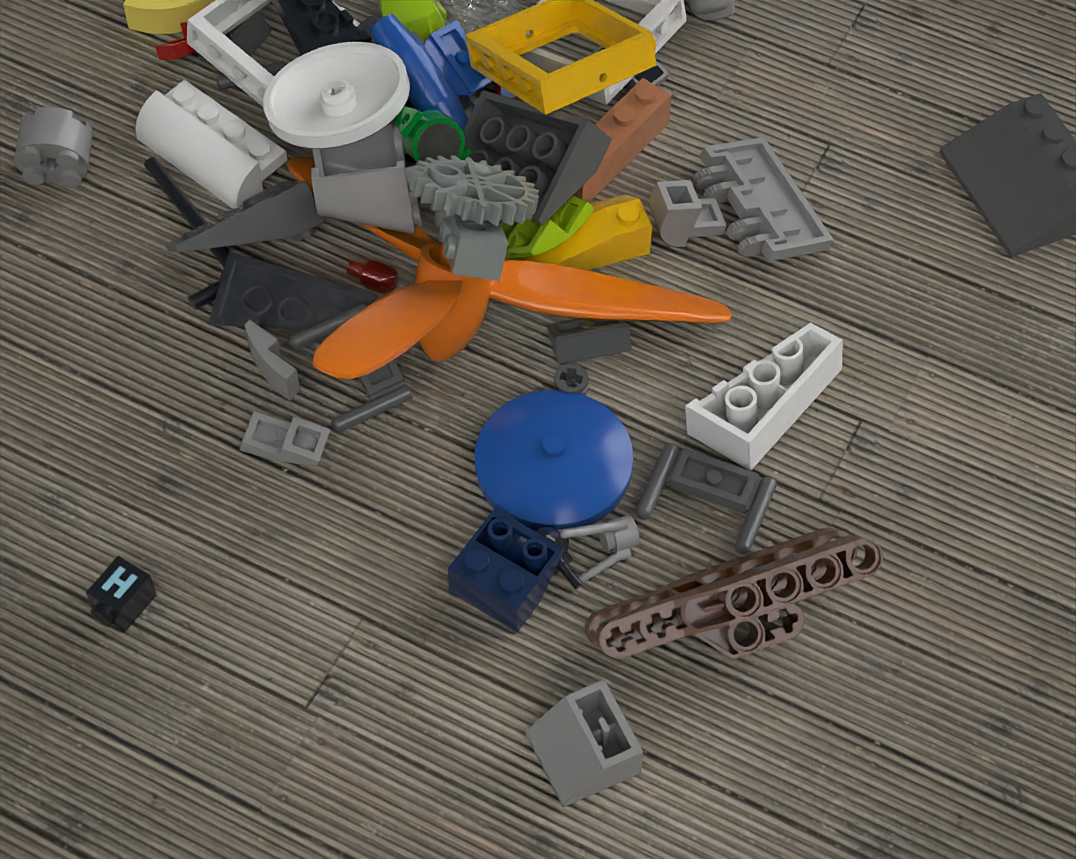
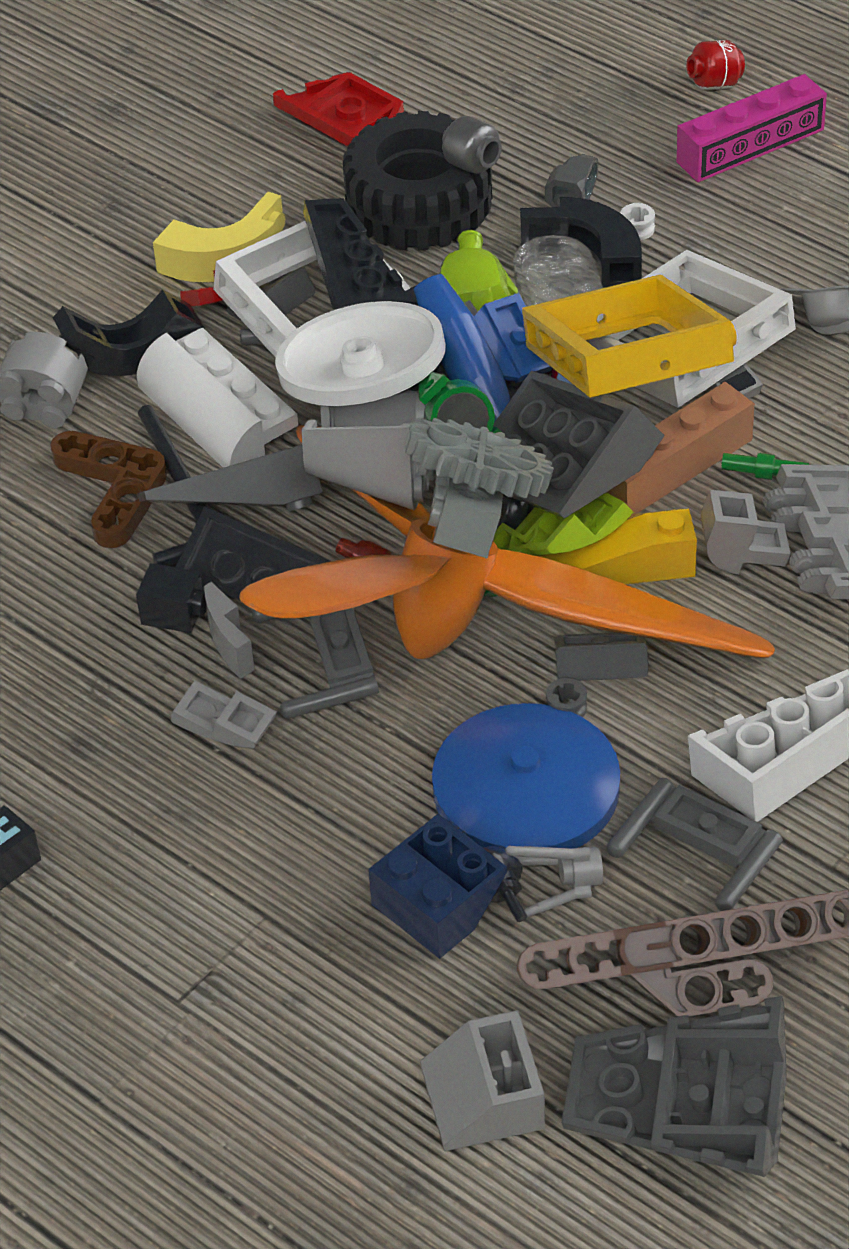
camera: 15 degrees right, 10 degrees down
(119, 104) = (119, 347): none -> black arch
(147, 225) = (133, 473): none -> reddish brown beam
(215, 336) = (171, 598): none -> black brick
(685, 146) = (763, 466): none -> green bar
(749, 720) = (687, 1087): none -> dark grey wedge

